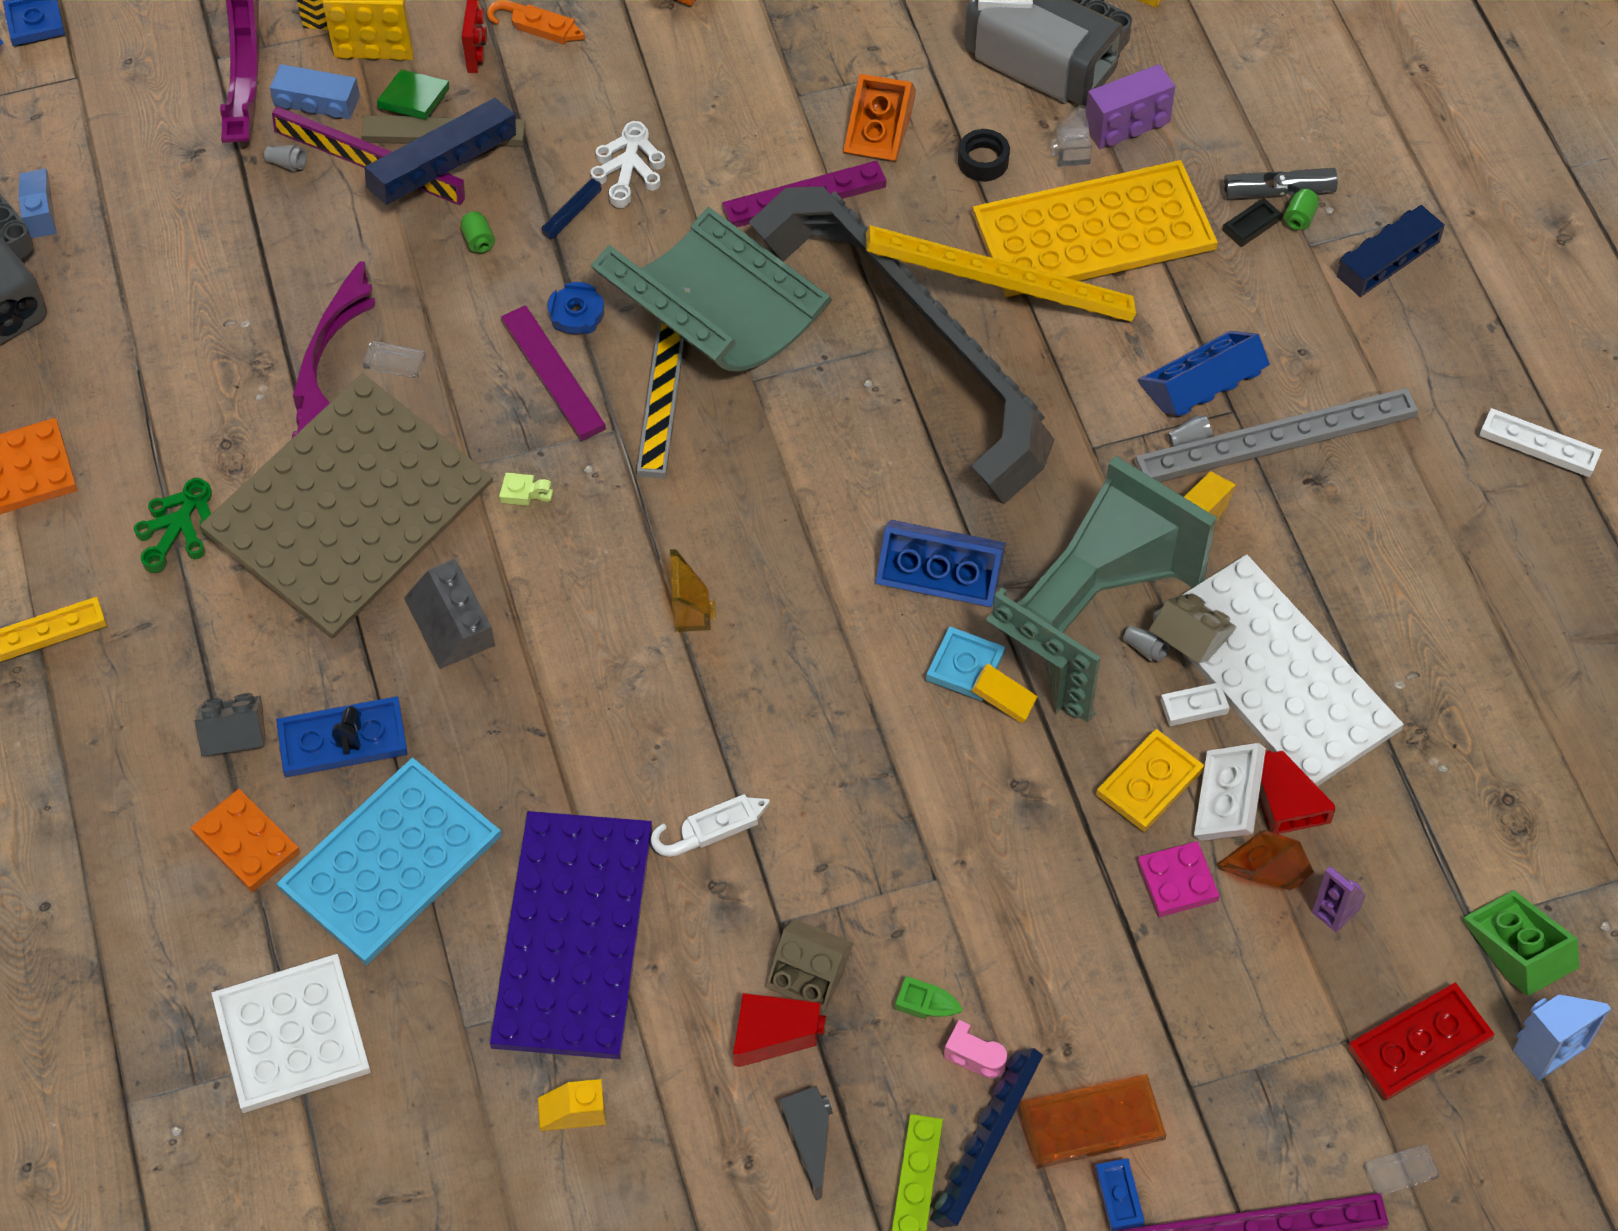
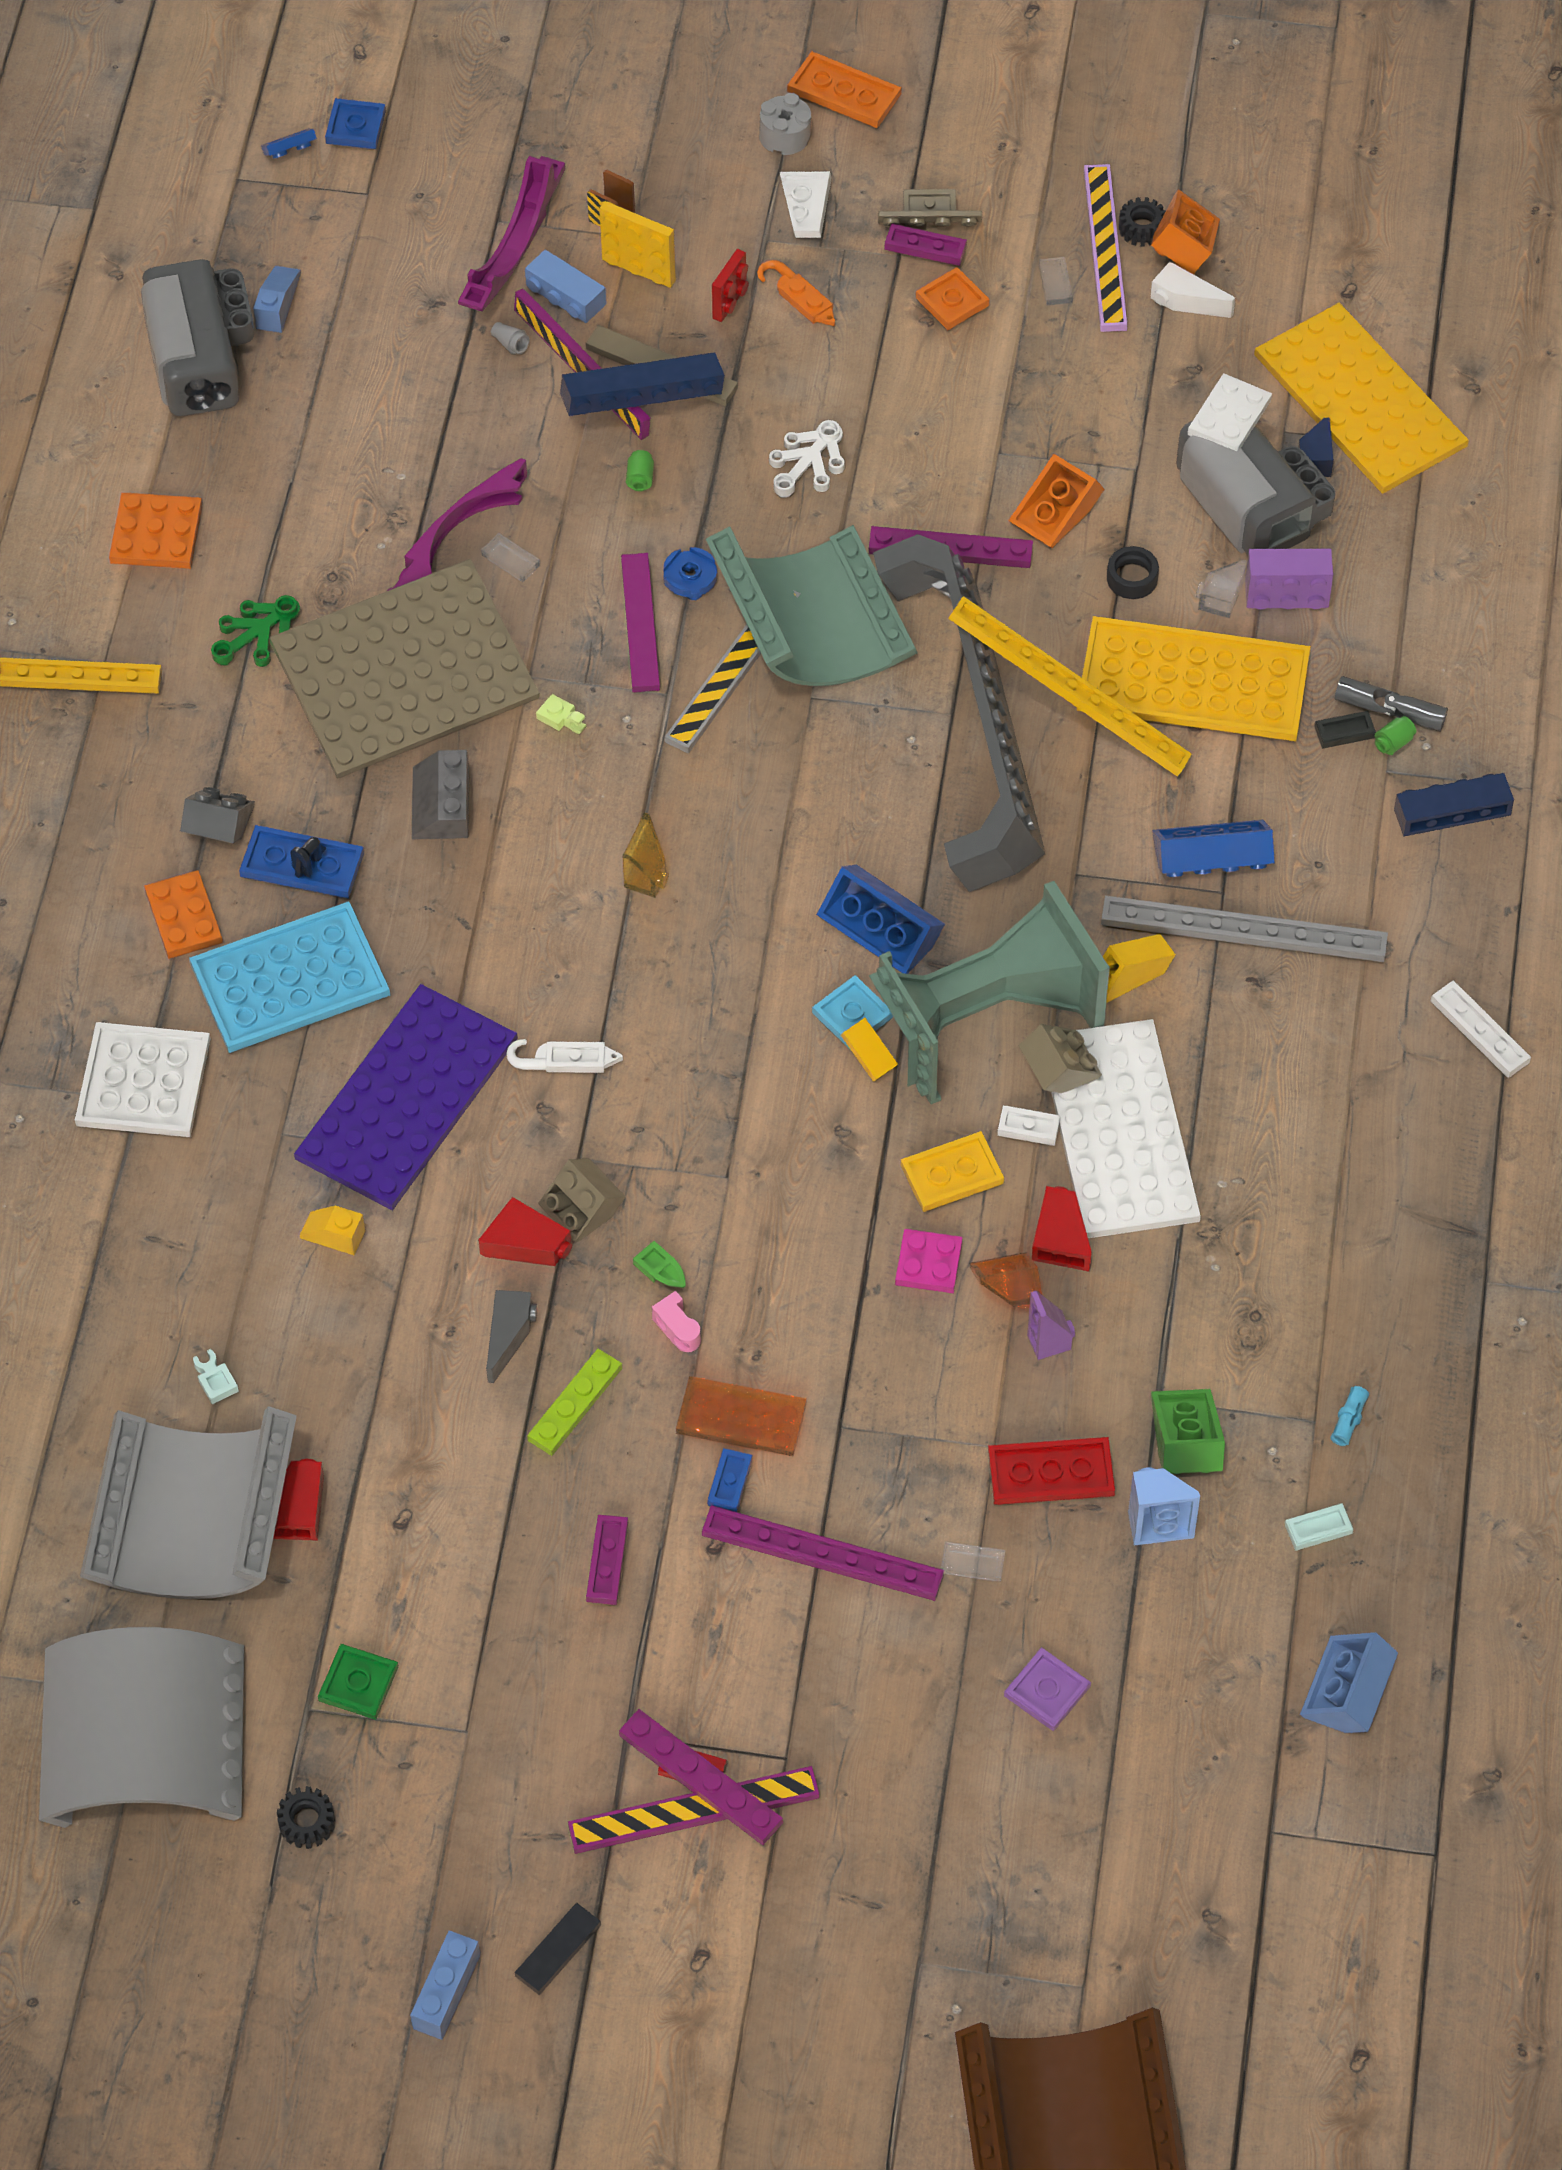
camera: 25 degrees right, 0 degrees up
(413, 94) = (651, 321): green tile -> none
(571, 208) = (735, 480): dark blue axle -> none
(987, 1137) = (637, 1395): dark blue plate -> none
(1146, 643) = (1016, 1059): light grey cone -> none
(1190, 431) = (1169, 893): light grey cone -> none
(1230, 792) = (1009, 1206): white plate -> none

